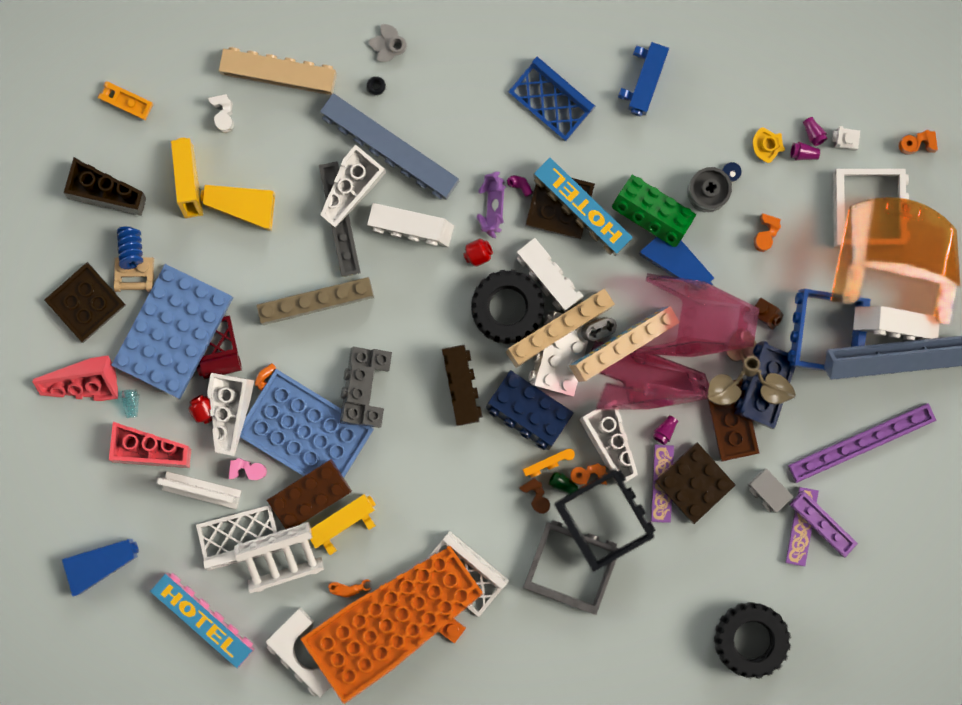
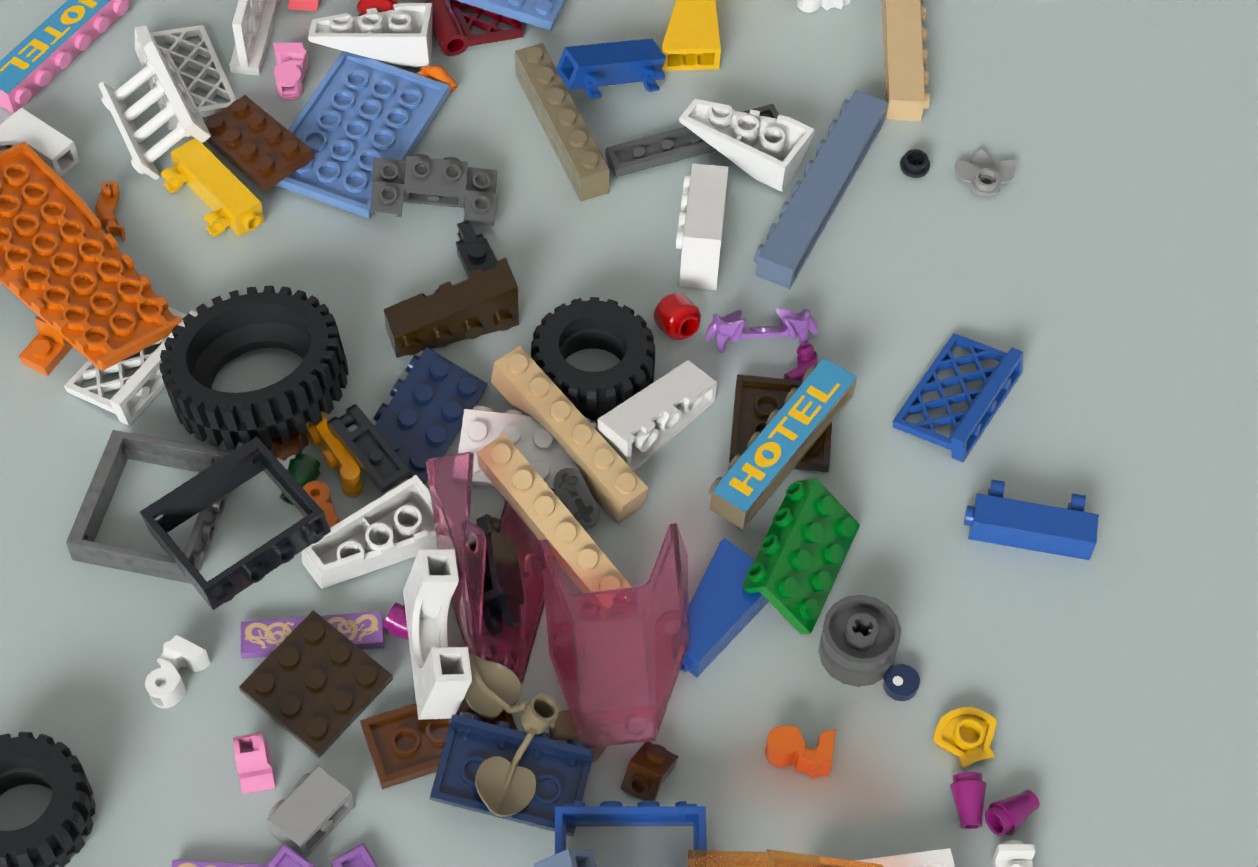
camera: 75 degrees right, 30 degrees down
(278, 262) = (612, 64): none -> blue brick
(418, 364) = (474, 249): none -> black hinge
(463, 525) = (243, 326): none -> black tyre
(560, 442) = (369, 449): none -> black plate
(655, 374) = (502, 577): none -> black hinge
(685, 562) = (165, 683): none -> white leg
(714, 418) = (439, 671): none -> white arch
(739, 518) = (253, 762): none -> bright pink leg

